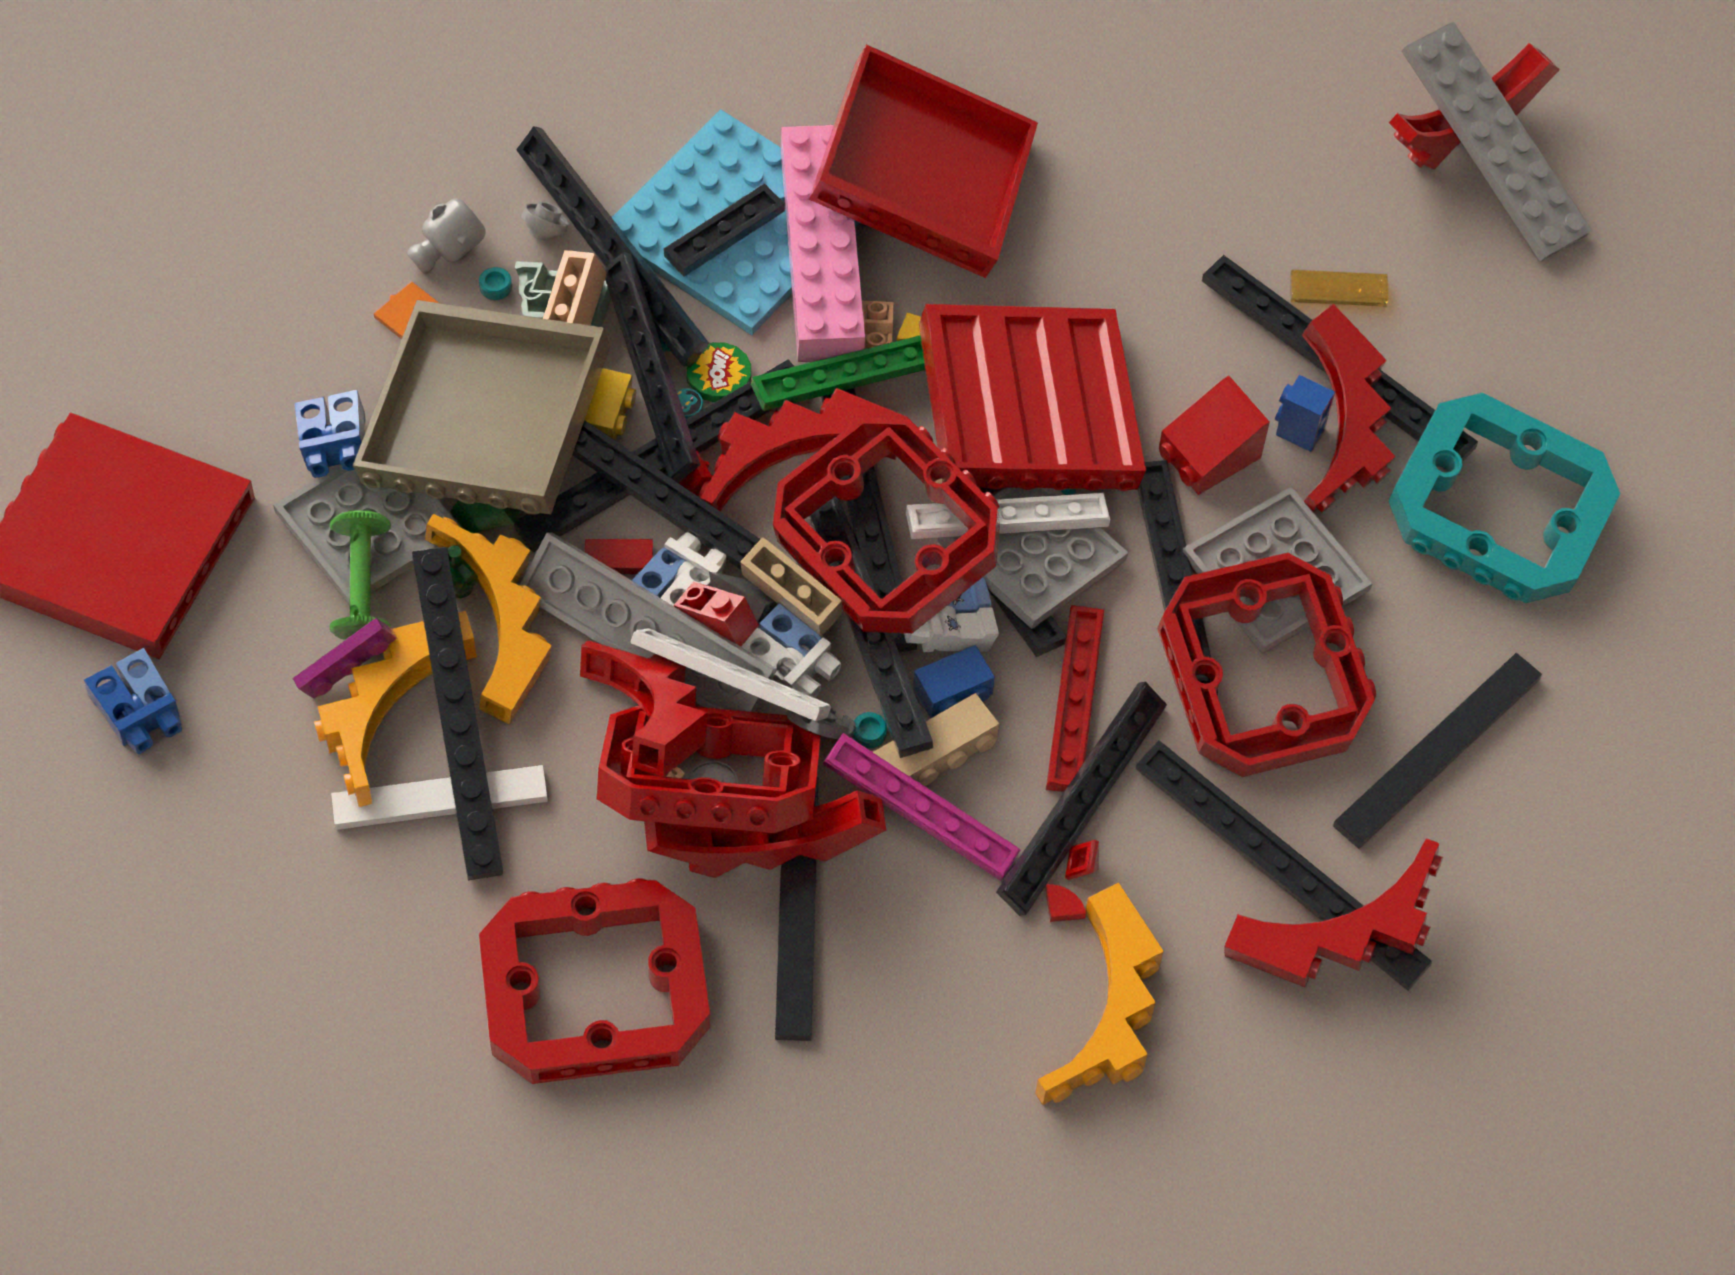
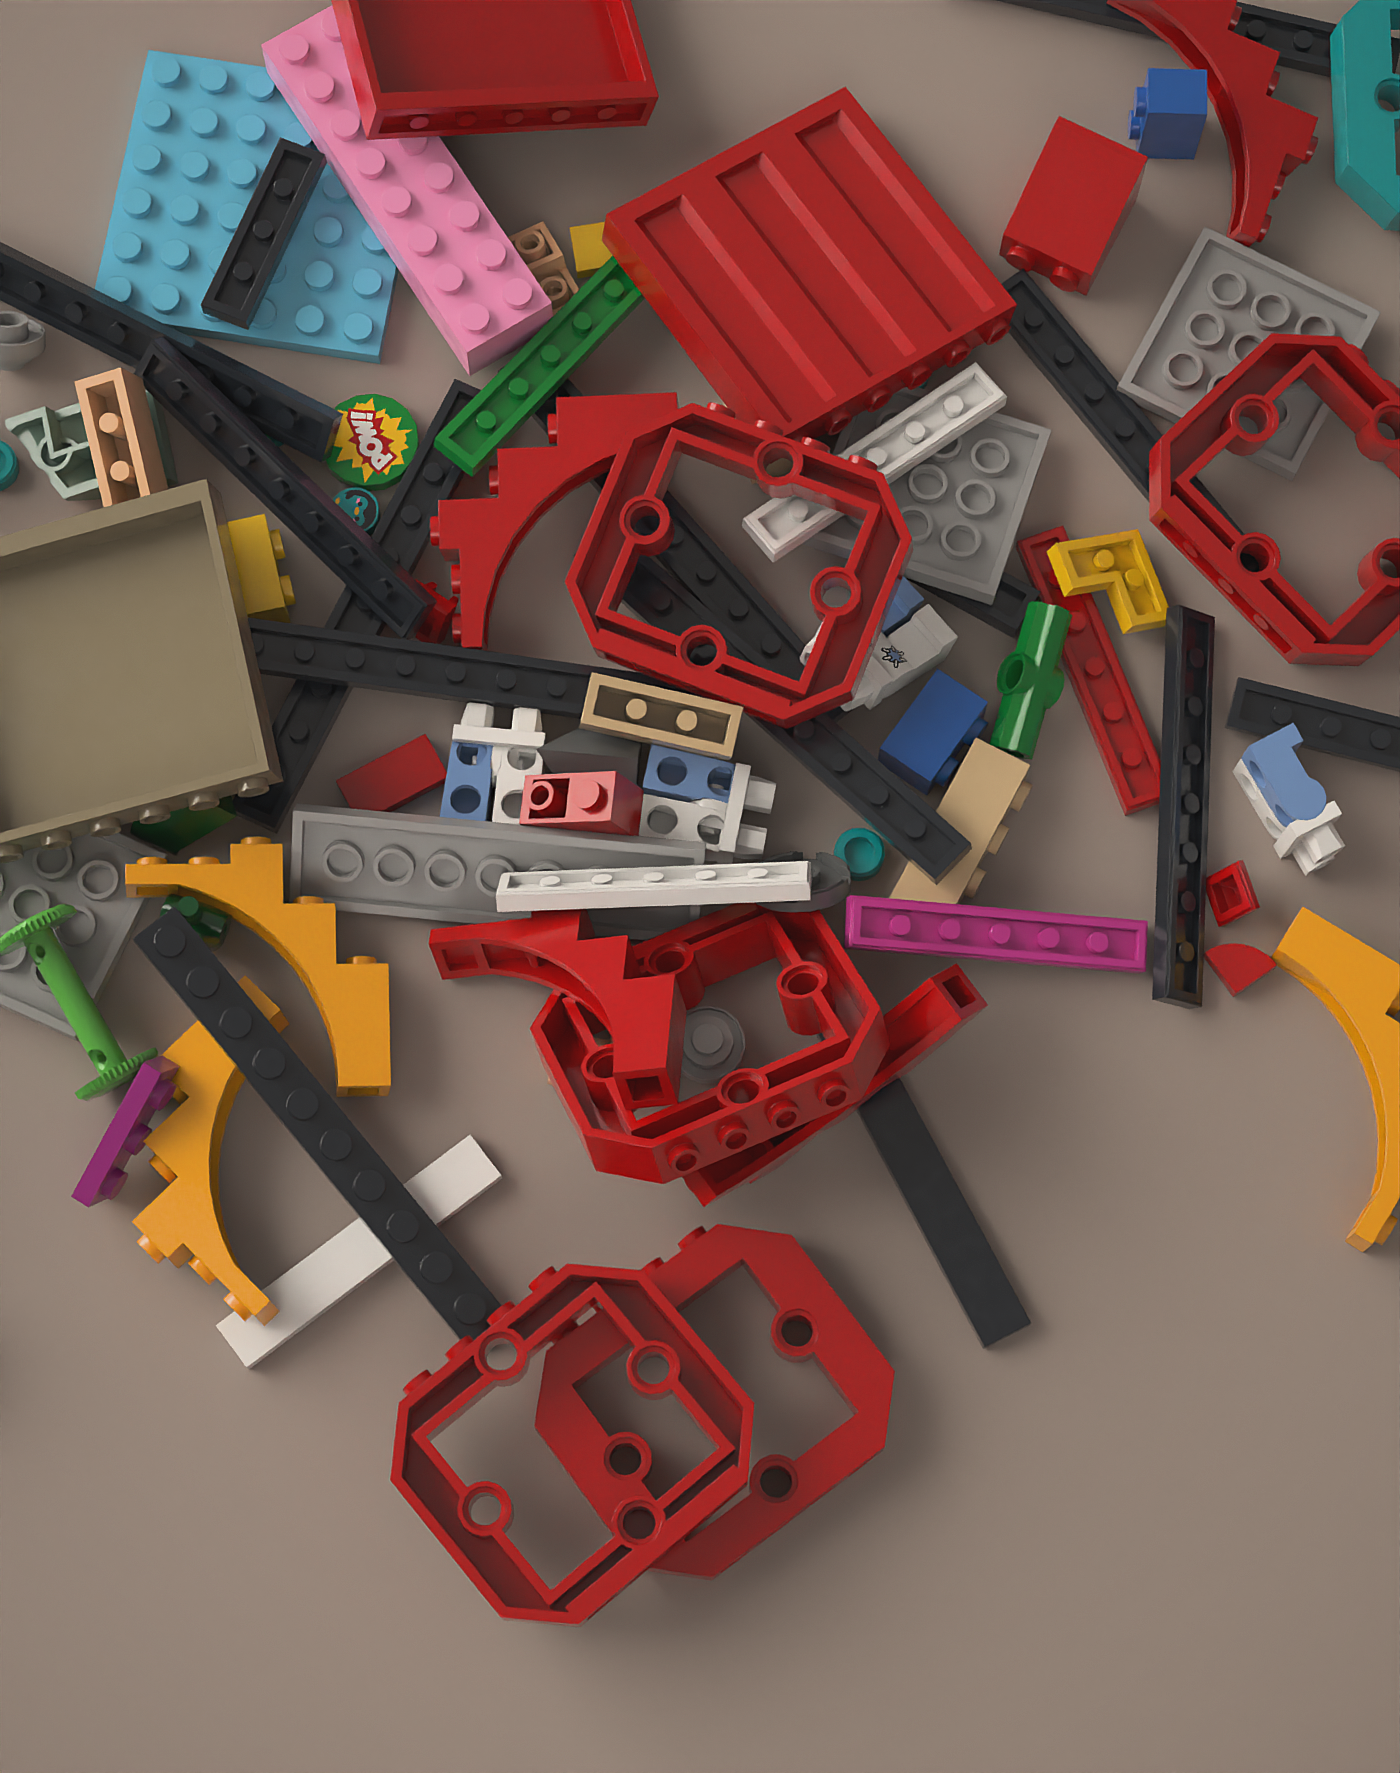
camera: 25 degrees left, 15 degrees up
(479, 1026) = (693, 1379): none -> red panel
(1030, 680) = (1030, 679): none -> green piece
(1121, 643) = (1120, 567): none -> yellow plate
(1147, 819) = (1289, 800): none -> hips

